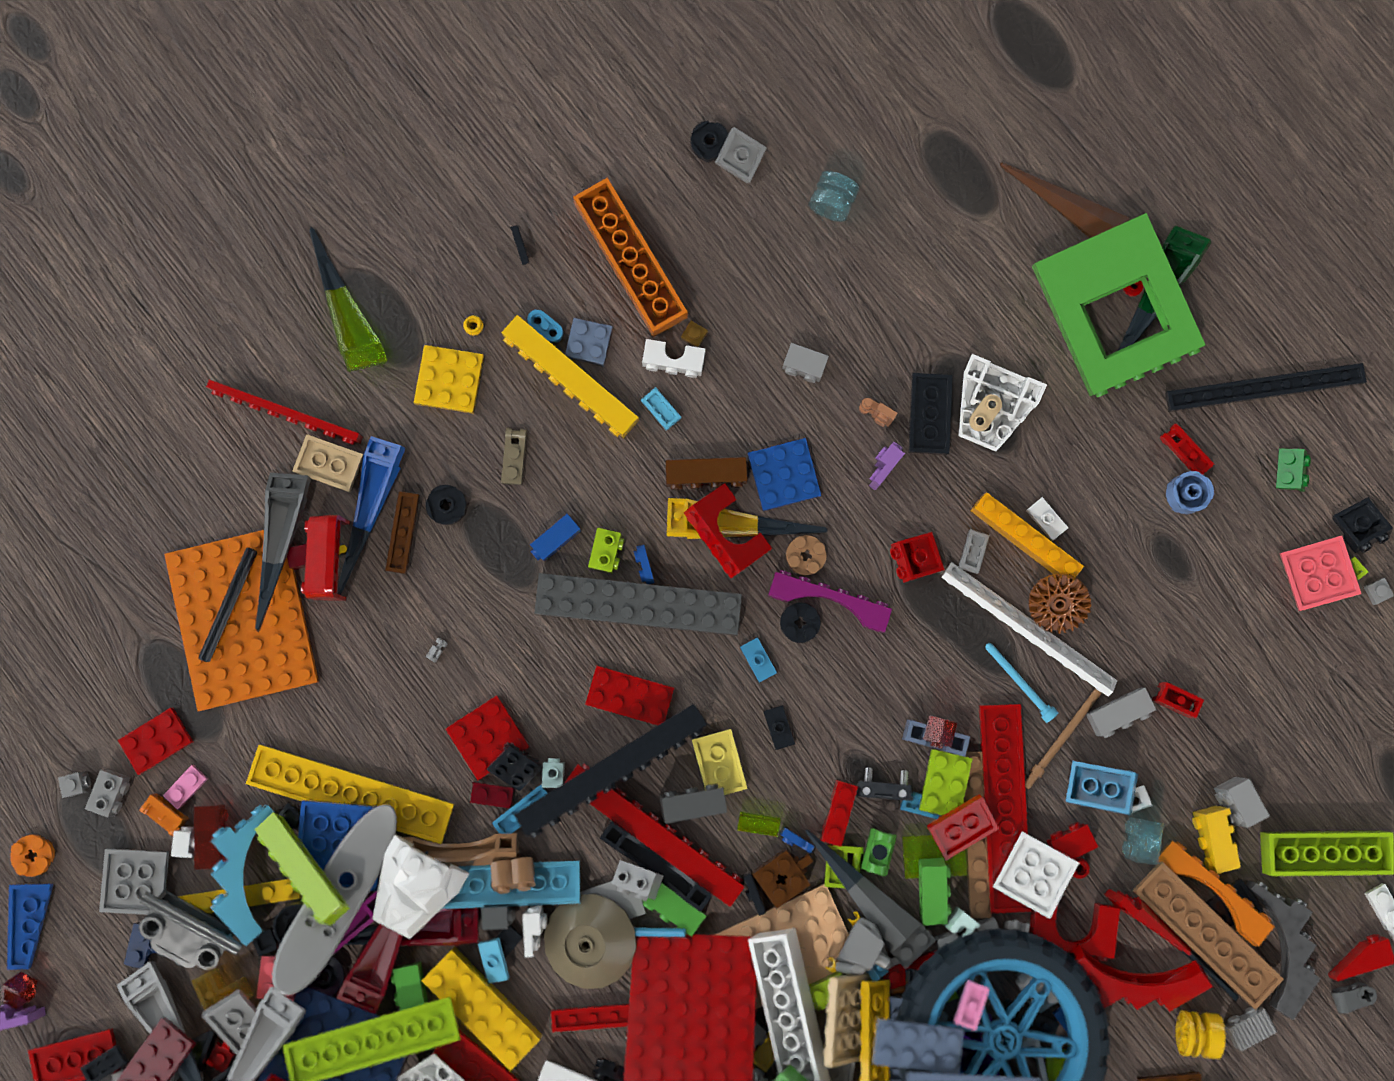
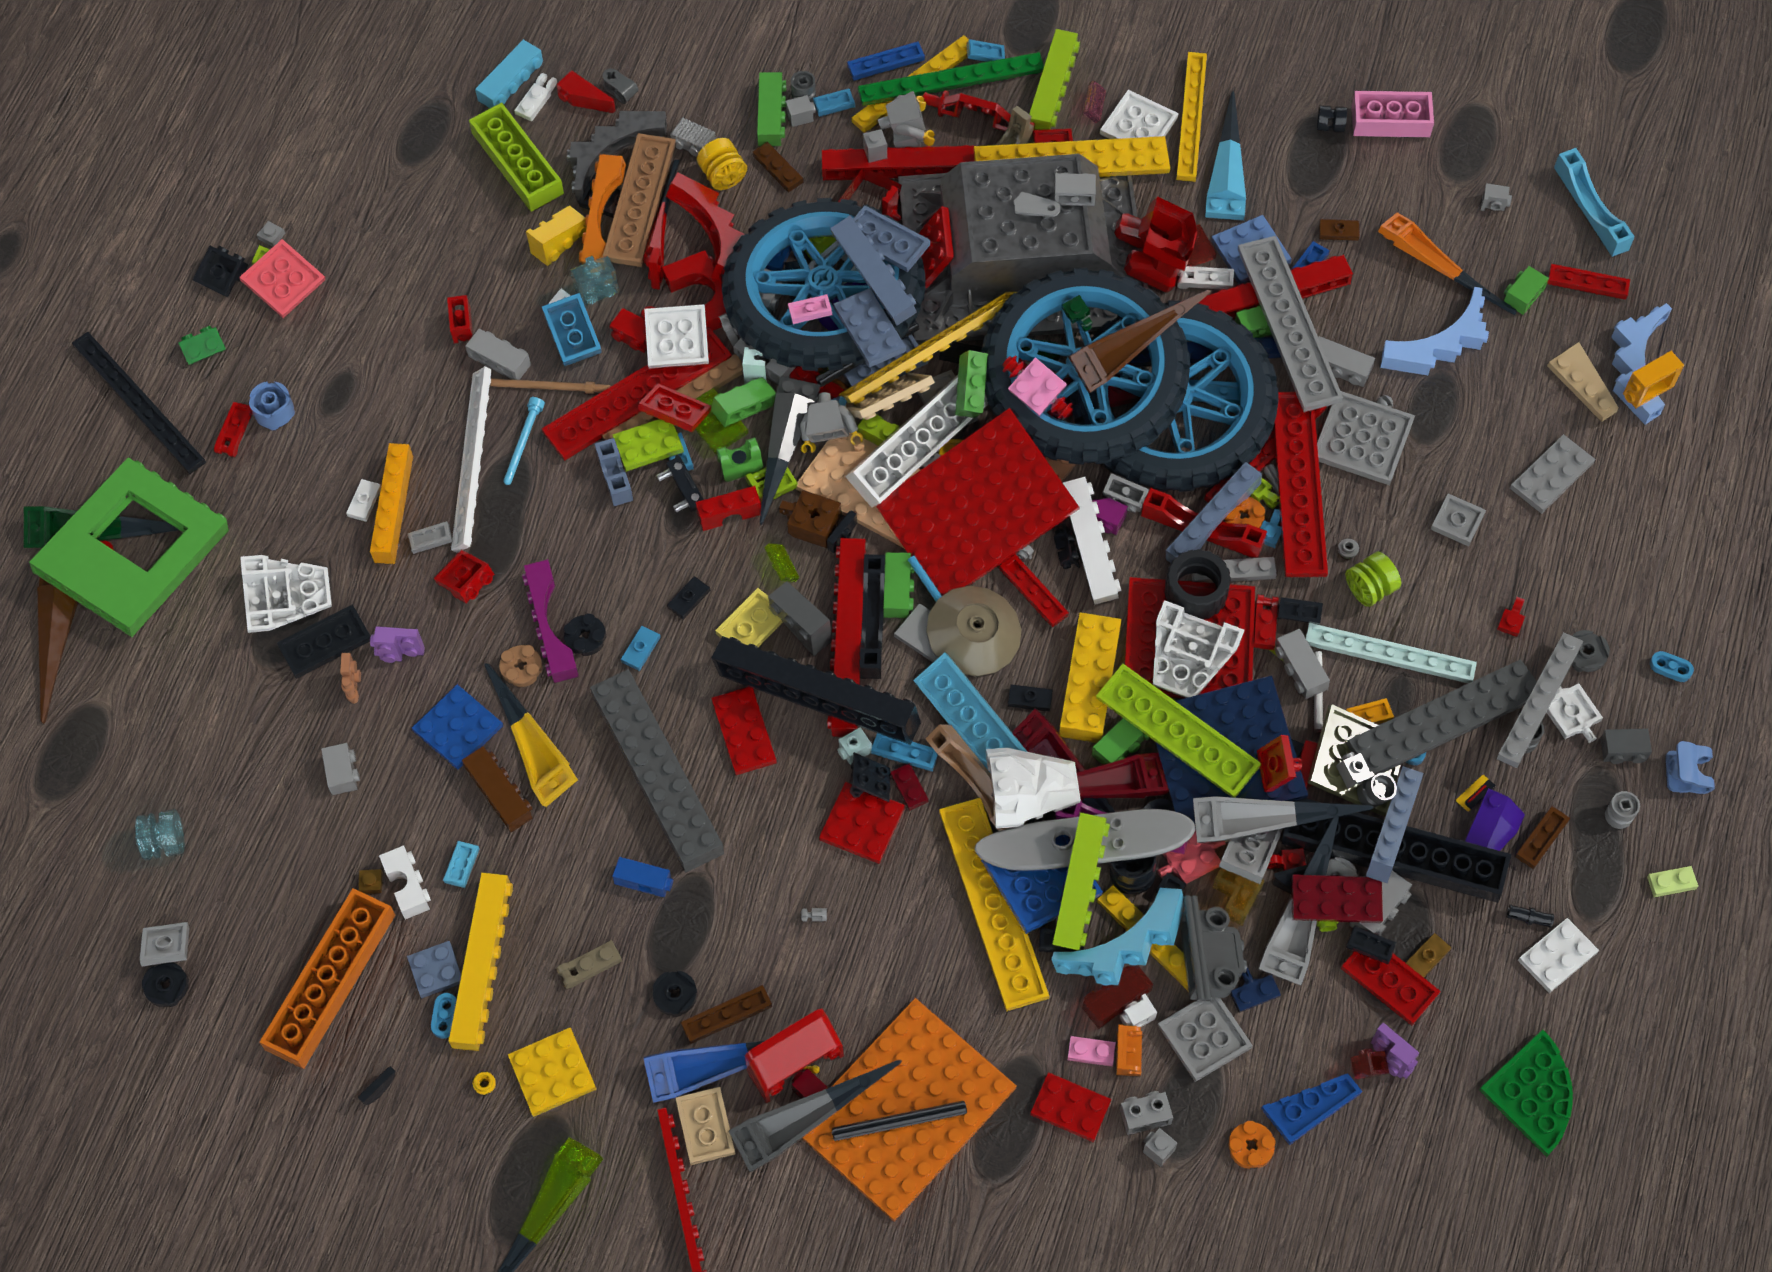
camera: 120 degrees left, 20 degrees down
(493, 960) = (1044, 692): medium azure plate -> none
(497, 917) = (1006, 707): dark grey brick -> none
(513, 875) = (961, 717): medium nougat brick -> none
(533, 925) = (992, 677): white plate -> none
(605, 551) = (626, 827): lime brick -> none
(637, 880) = (895, 619): light grey brick -> none
(645, 573) = (612, 791): blue plate -> none
(731, 556) = (539, 755): red arch -> none
(791, 838) = (776, 531): blue plate -> none
(940, 732) = (606, 465): clear red brick -> none
(985, 412) = (296, 592): tan plate -> none
(1057, 615) = (433, 445): dark orange wheel -> none
(1242, 800) = (511, 231): light grey brick -> none

